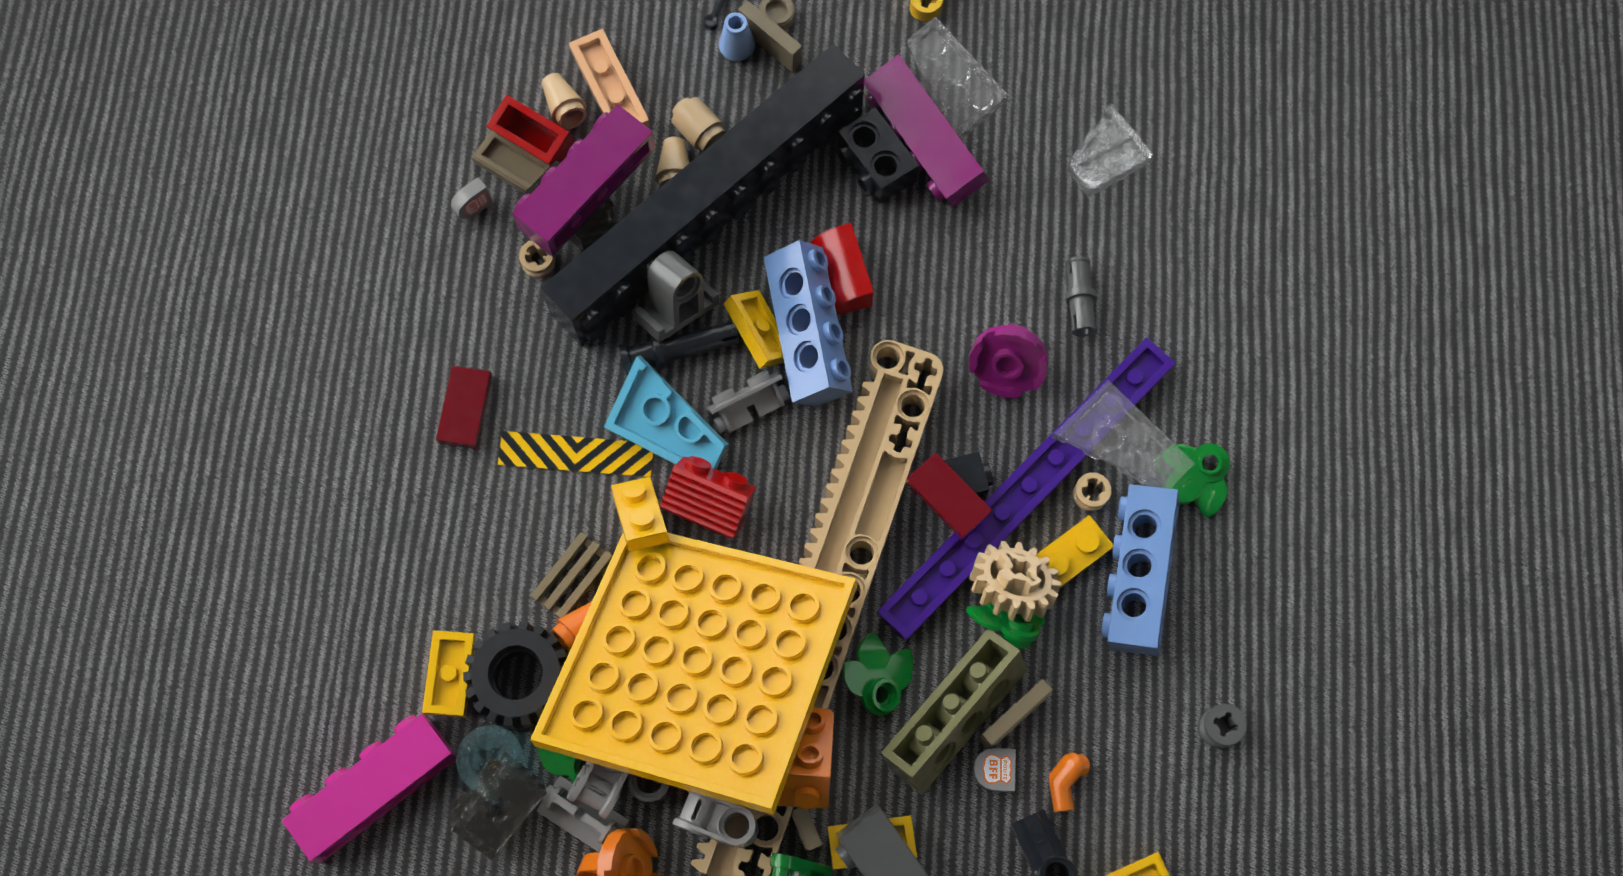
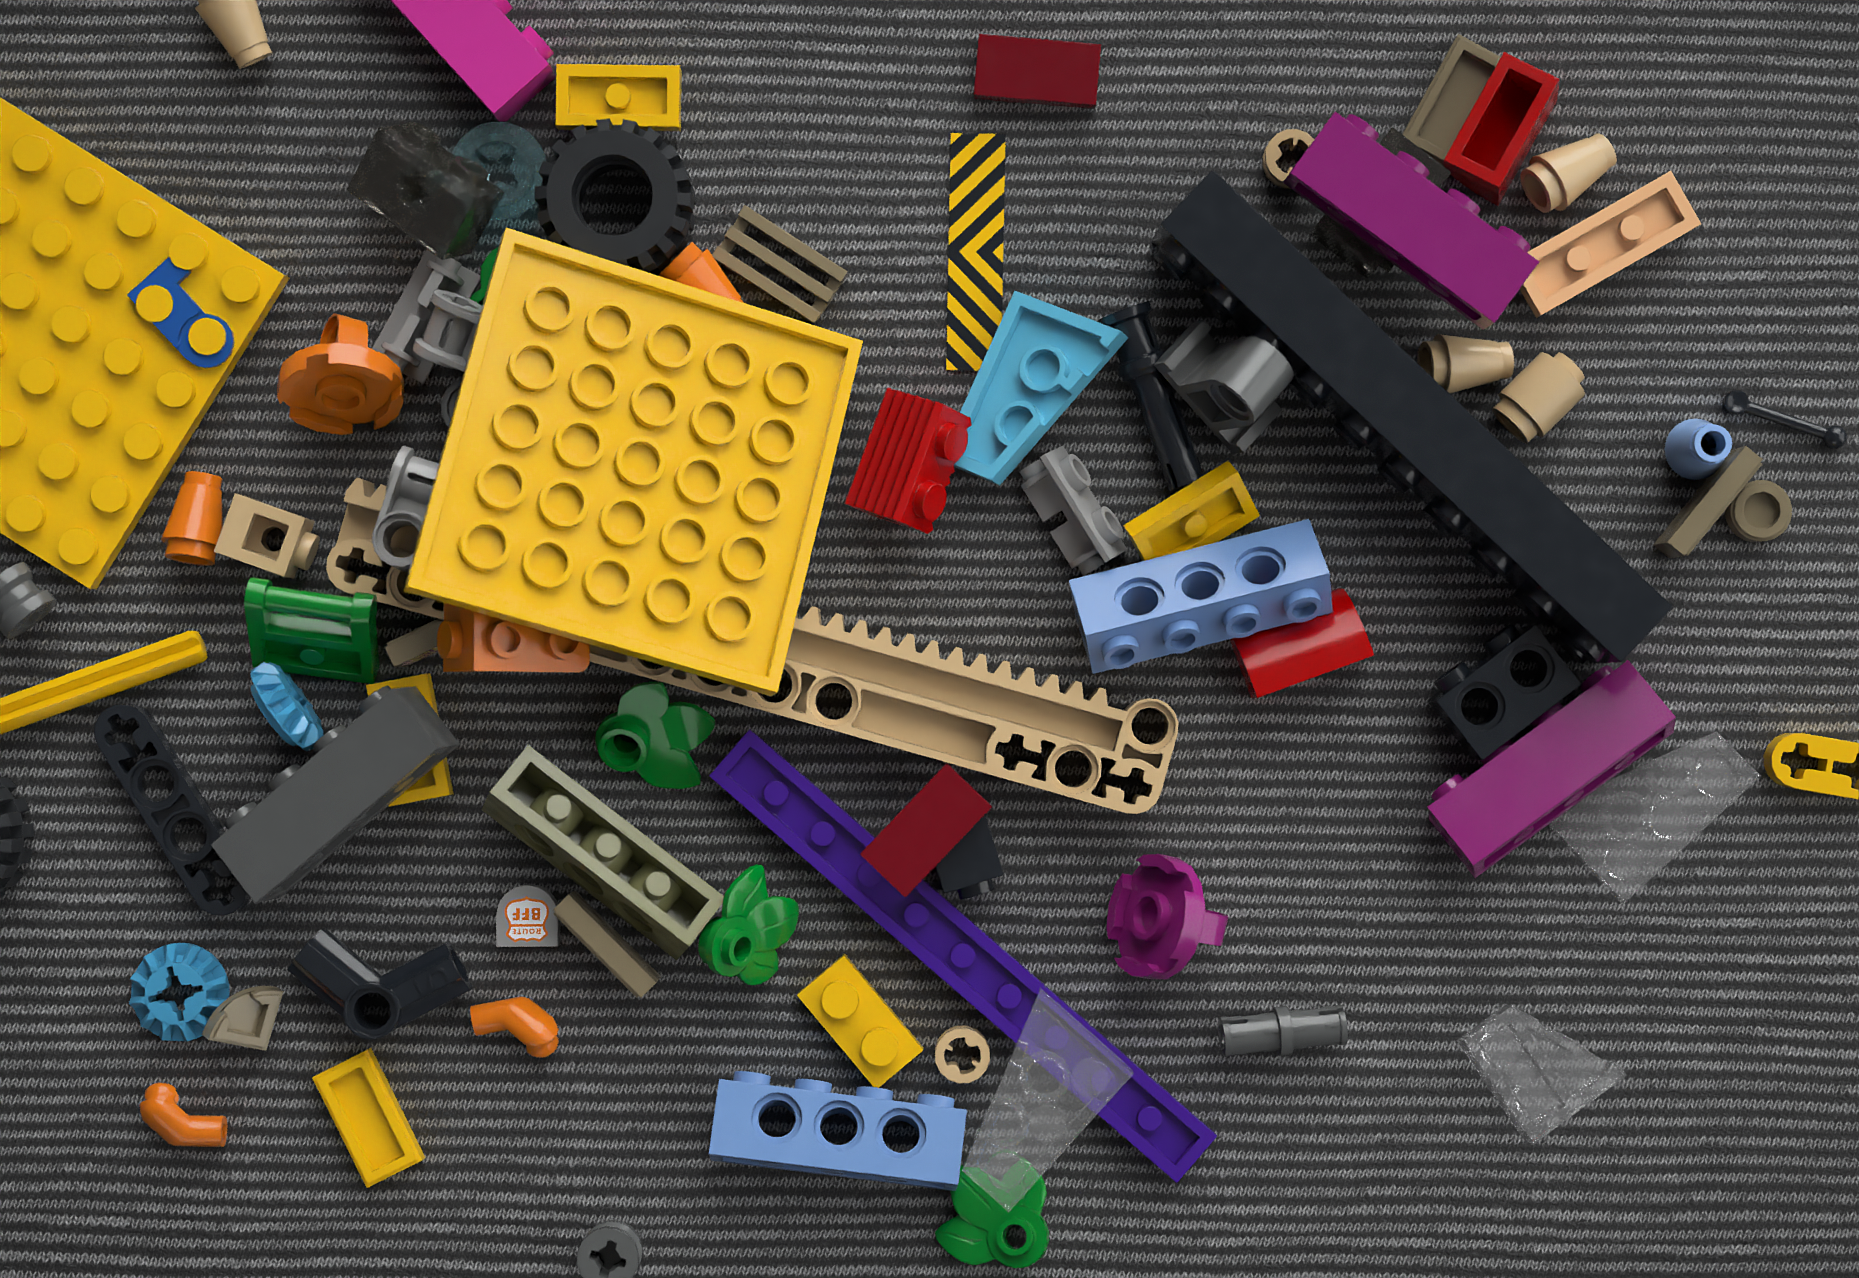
camera: 90 degrees right, 15 degrees up
(471, 199) = (1380, 41): light grey tile -> none
(639, 514) = (876, 357): yellow plate -> none
(1017, 583) = (799, 937): tan gear -> none

